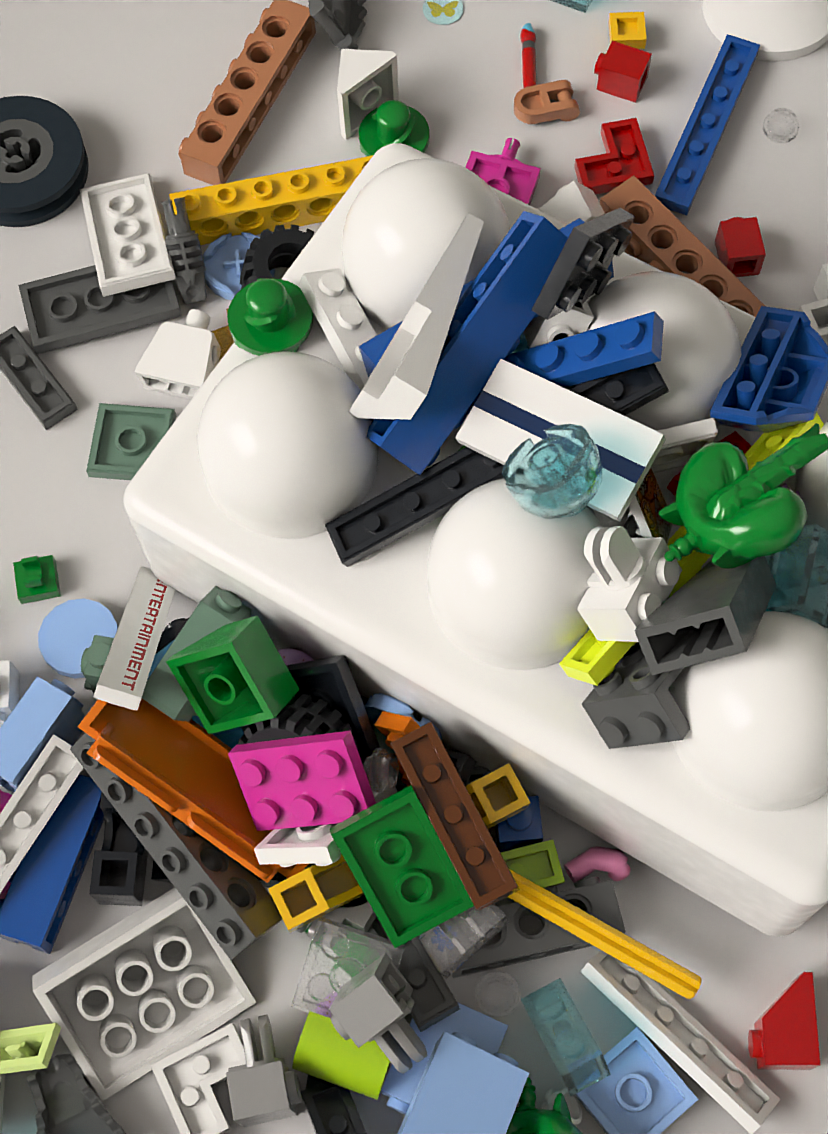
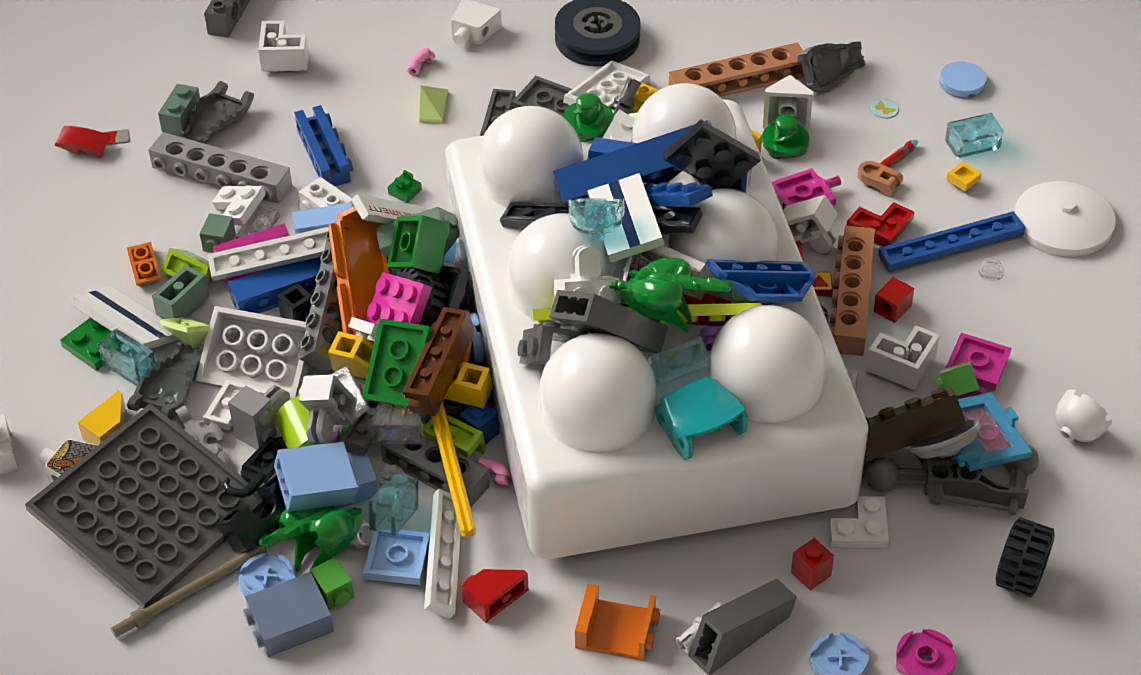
camera: 45 degrees right, 20 degrees down
(411, 358) = (629, 131): white wedge -> none
(622, 71) = (936, 190): red brick -> none

